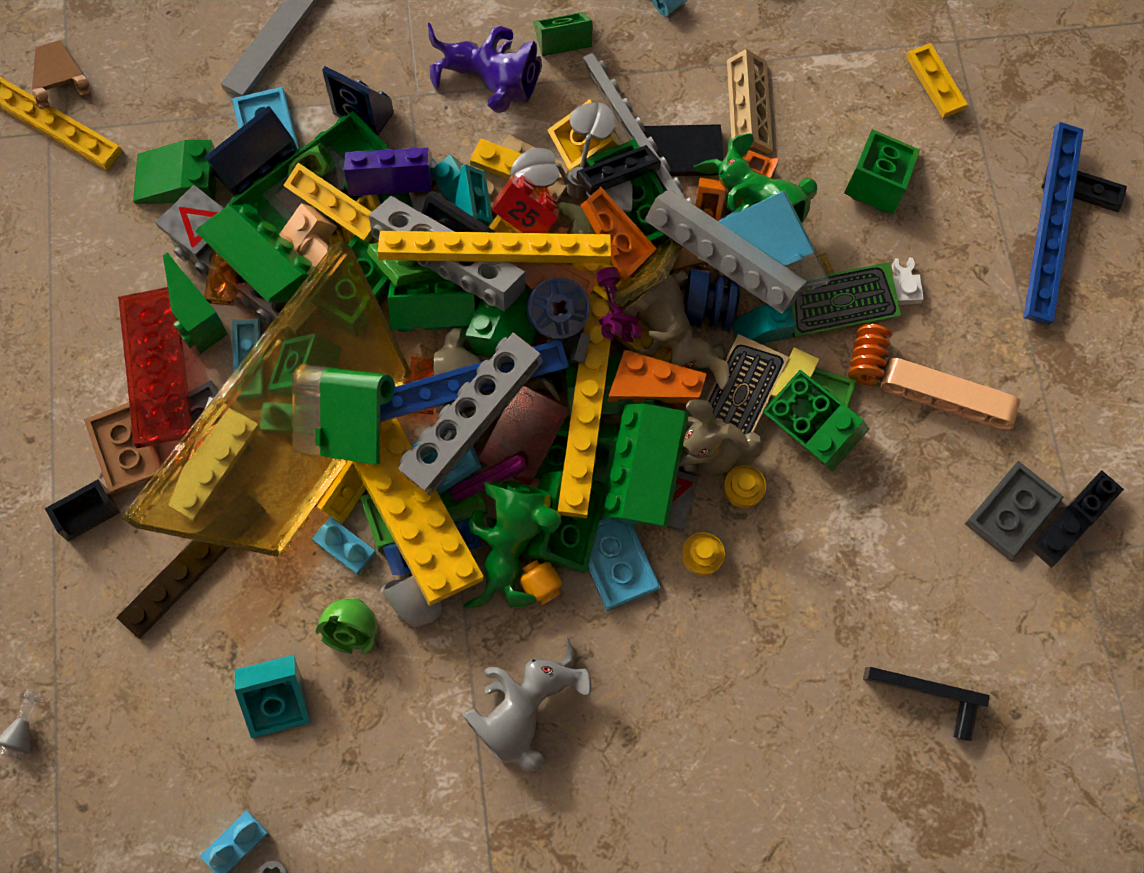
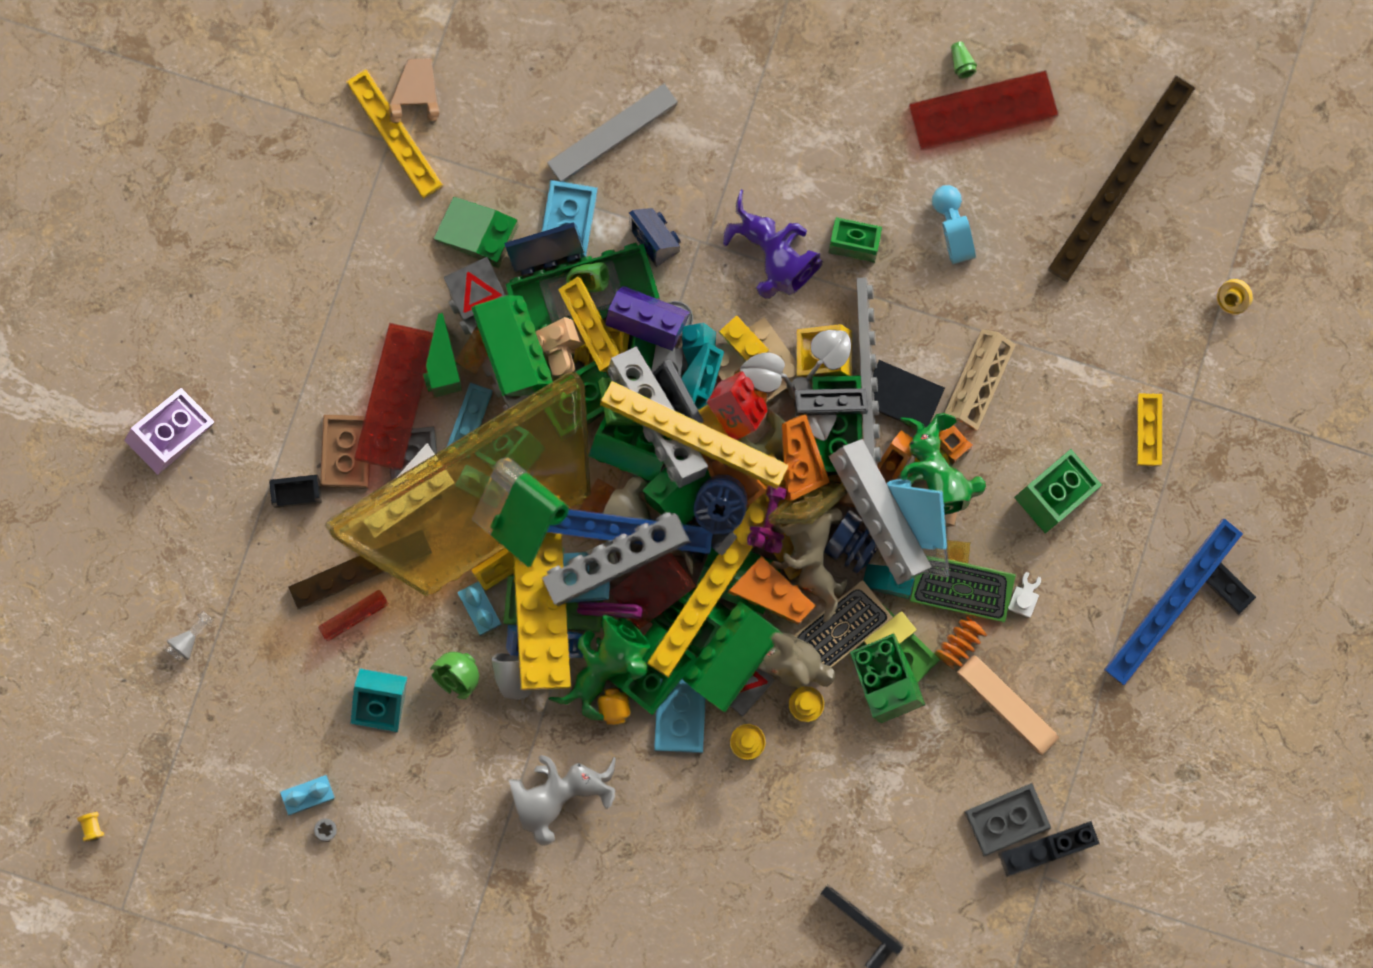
camera: 25 degrees right, 10 degrees up
(205, 617) = (353, 615): none -> clear red slope

